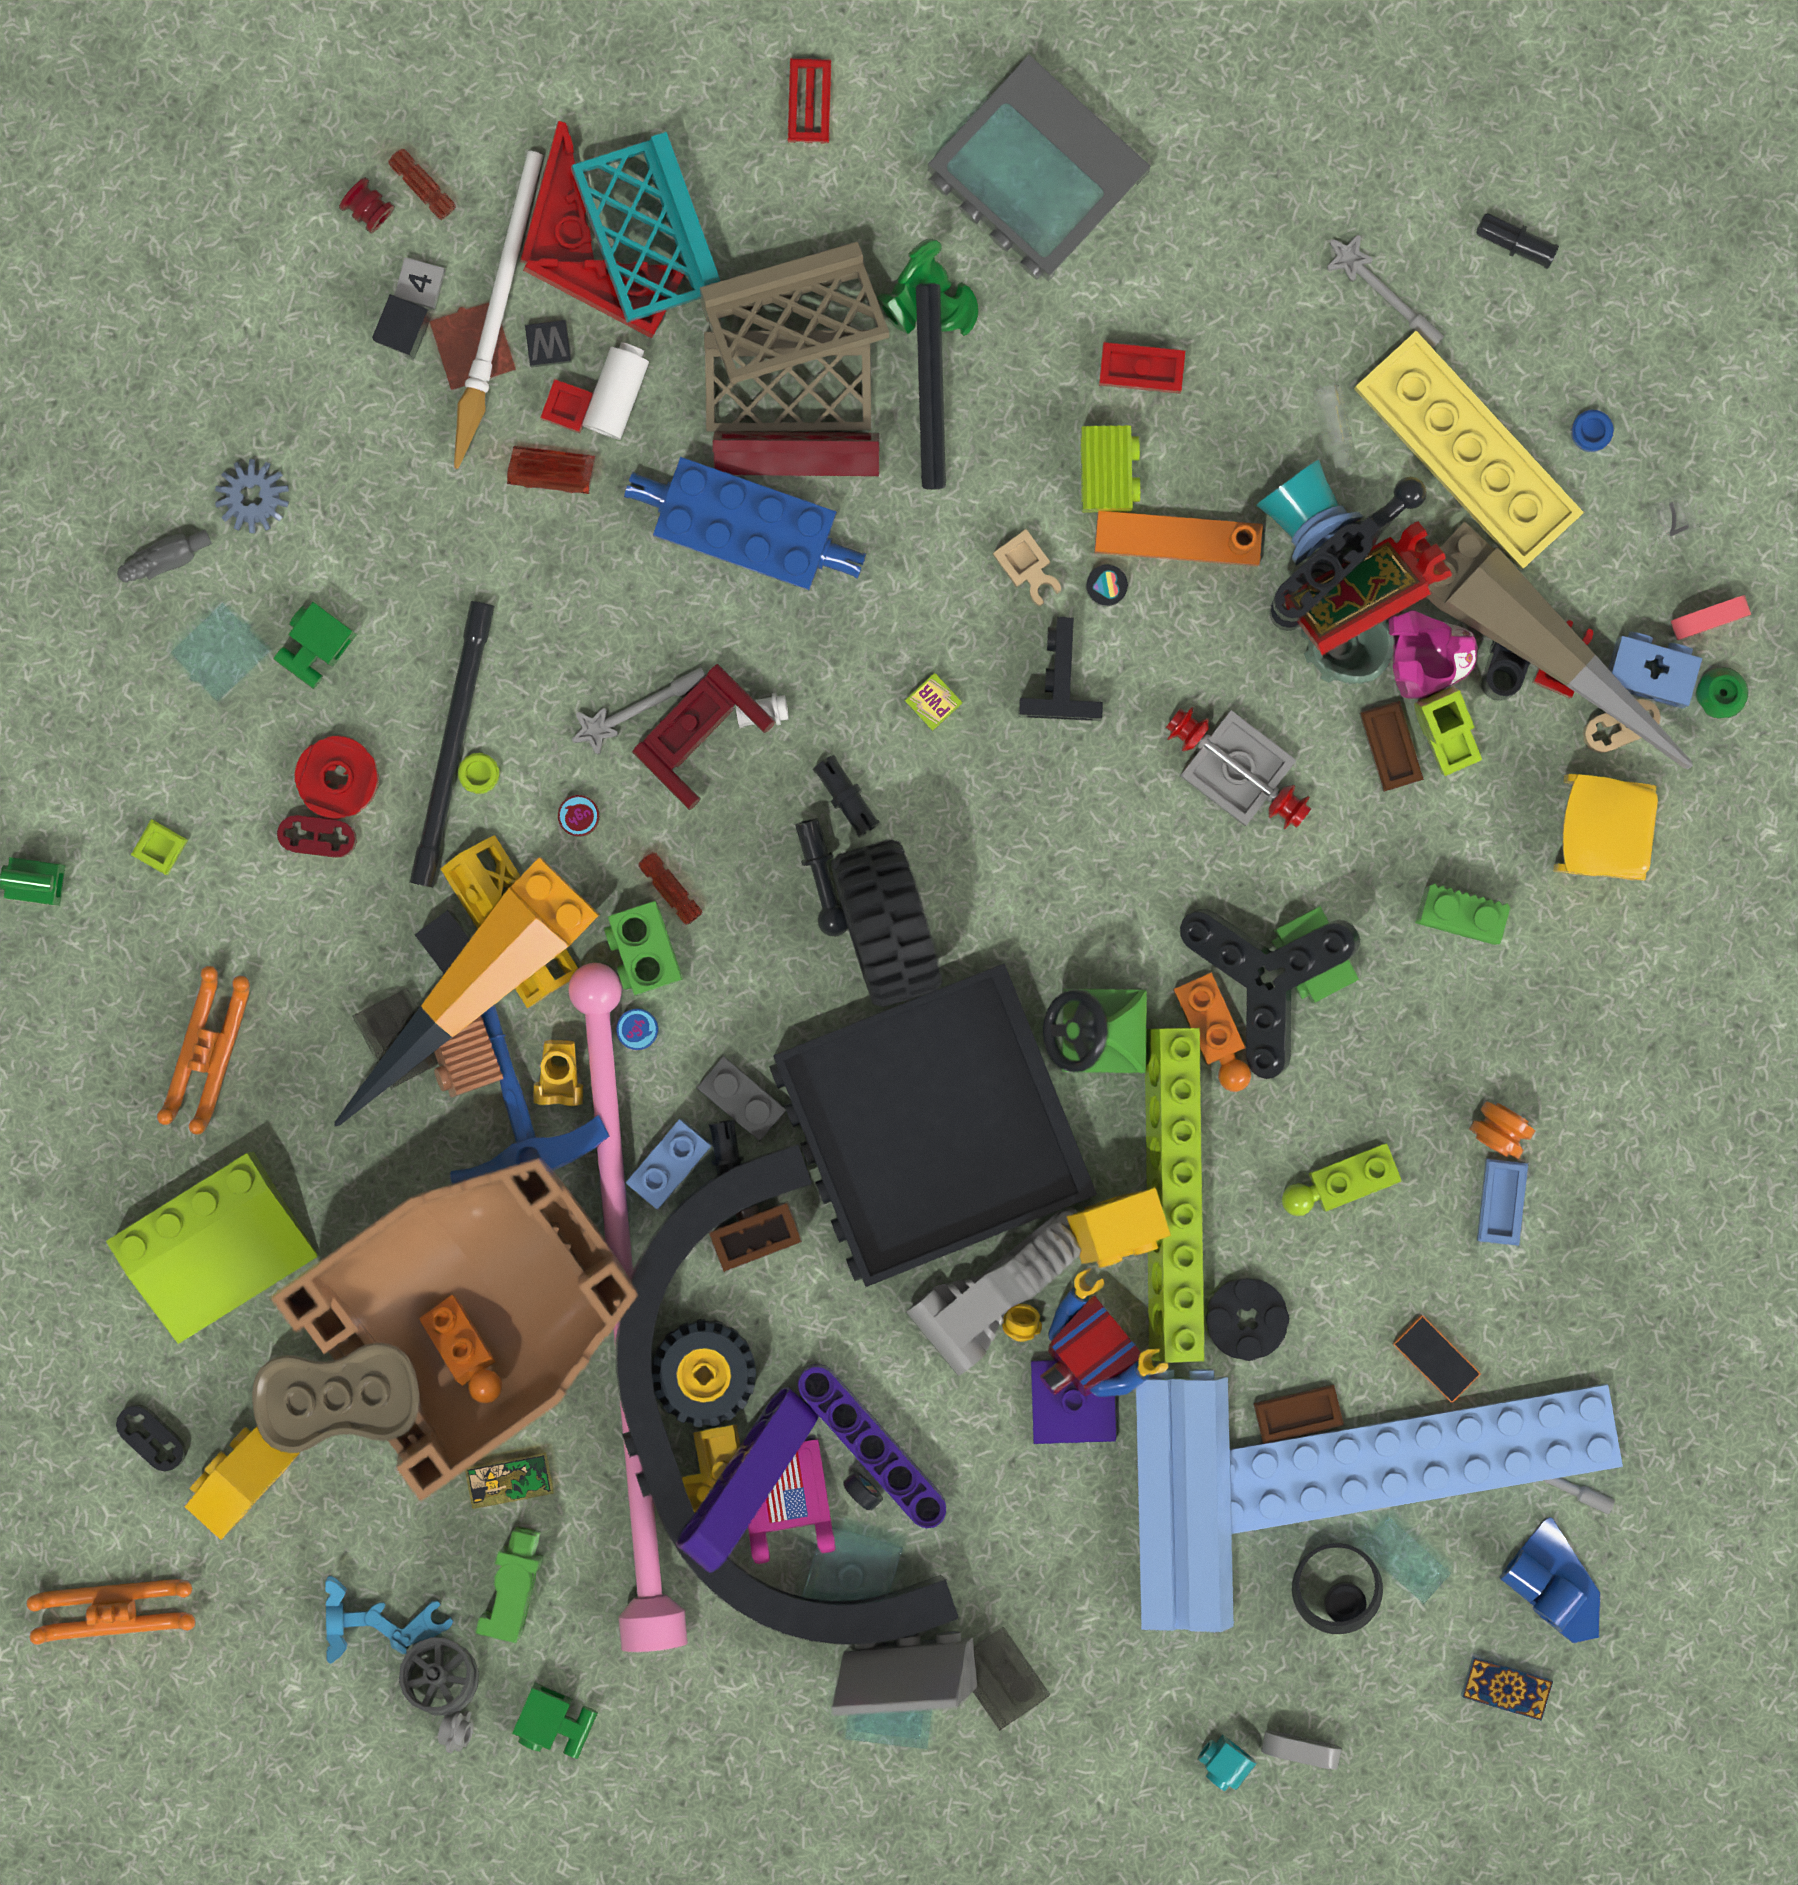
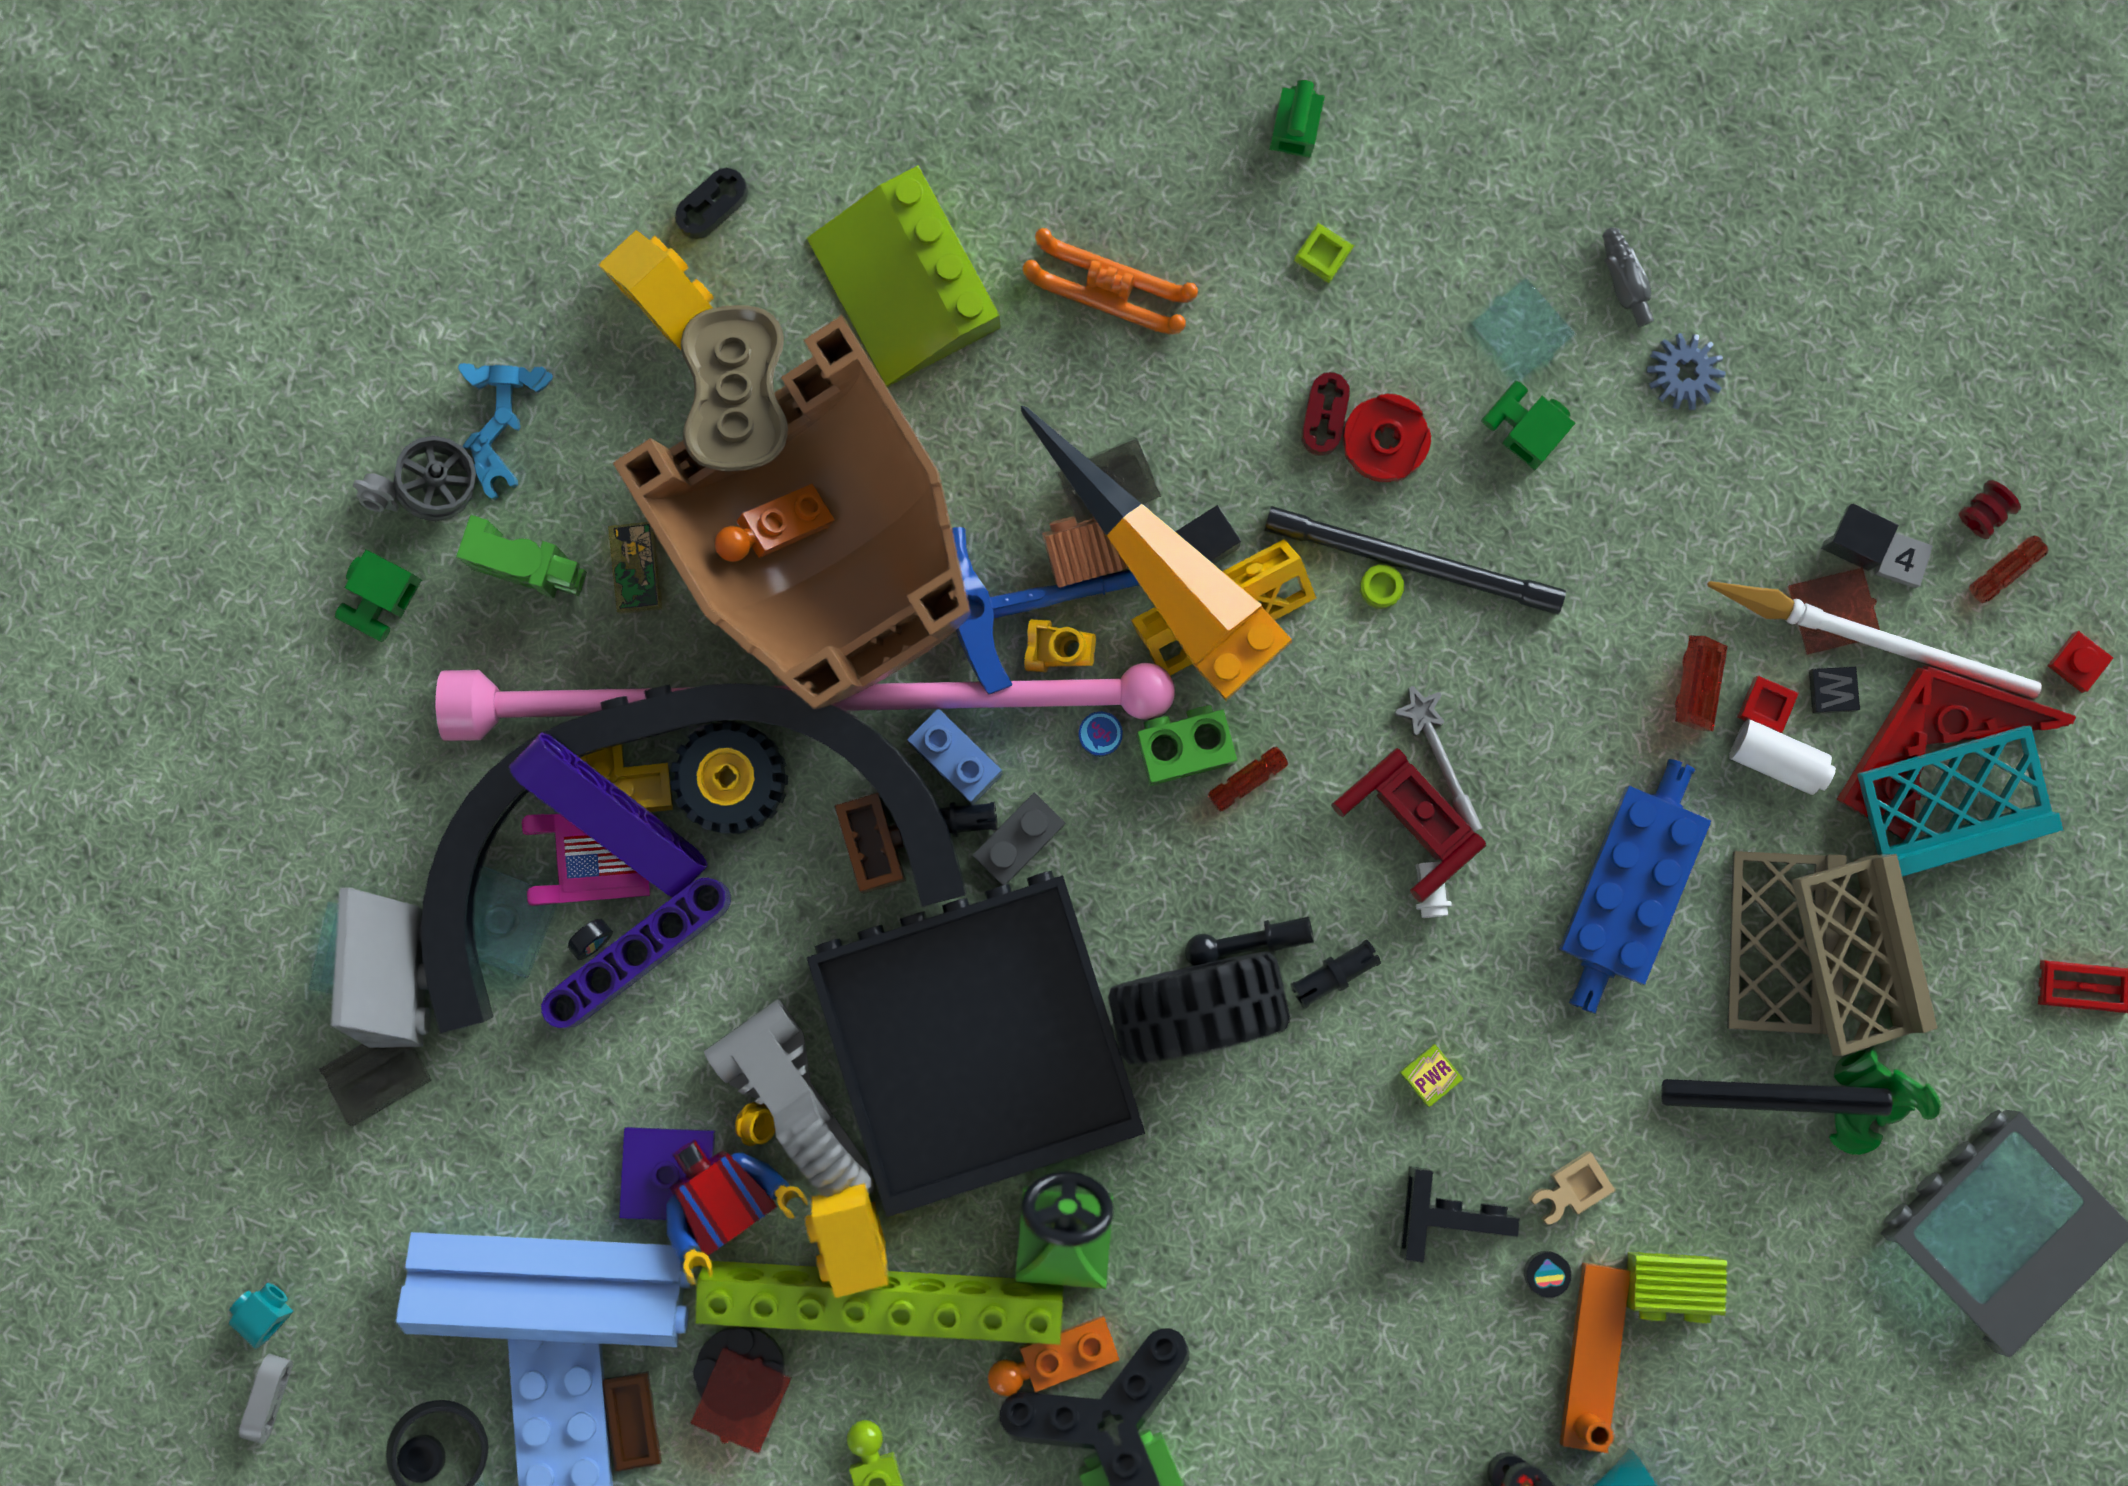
camera: 90 degrees right, 5 degrees down
(111, 1610) = (536, 151): orange piece -> none
(505, 114) = (2080, 661): none -> red plate
(578, 815) = (1331, 687): tile -> none
(796, 453) = (1707, 947): dark red fence -> none
(1142, 368) = (1784, 1331): red plate -> none
(1238, 768) = (1340, 1406): light grey plate -> none
(1271, 1314) = (741, 1400): none -> clear red piece

